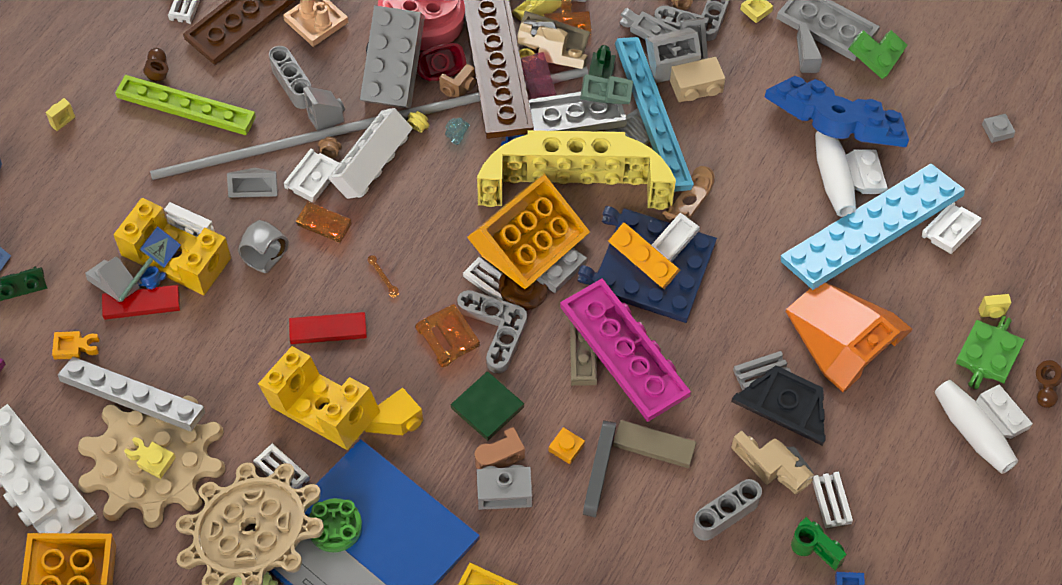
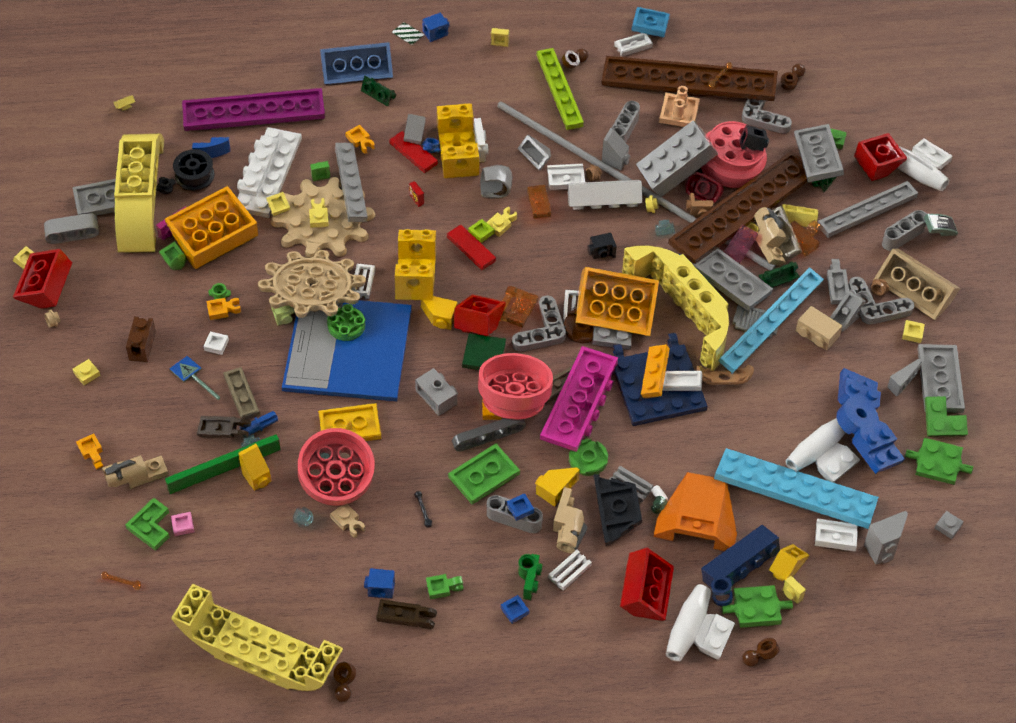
camera: 55 degrees right, 5 degrees down
(83, 416) = (320, 171): none -> bright green plate
(95, 493) = (278, 203): none -> light yellow plate
(159, 248) = (450, 135): piece -> none
(208, 335) = (416, 193): none -> red tile
(316, 303) = (481, 230): none -> lime plate
(318, 277) = (502, 223): none -> light yellow plate
(393, 290) = (524, 264): clear orange hinge -> none
(436, 376) = (478, 315): none -> red slope
(437, 200) = (602, 246): none -> black brick
(501, 452) = (459, 378): nougat leg -> none
(569, 399) = (515, 385): none -> coral wheel
(603, 90) = (760, 282): sand green slope -> none
(650, 508) = (484, 473): none -> bright green plate
(654, 444) = (530, 453): dark tan tile -> none
(672, 50) = (822, 297): light grey slope -> none
(705, 388) = (590, 457): none -> bright green tile
(717, 444) = (552, 483): none -> yellow slope
(736, 496) = (520, 507): none -> blue plate
(805, 356) = (660, 500): none -> clear green arm
(903, 437) = (647, 585): none -> red slope
(921, 87) = (939, 461): none -> bright green plate
(932, 336) = (739, 561): none -> dark blue hinge
(960, 289) = (788, 562): none -> yellow slope
(994, 185) = (884, 537): none -> light grey slope

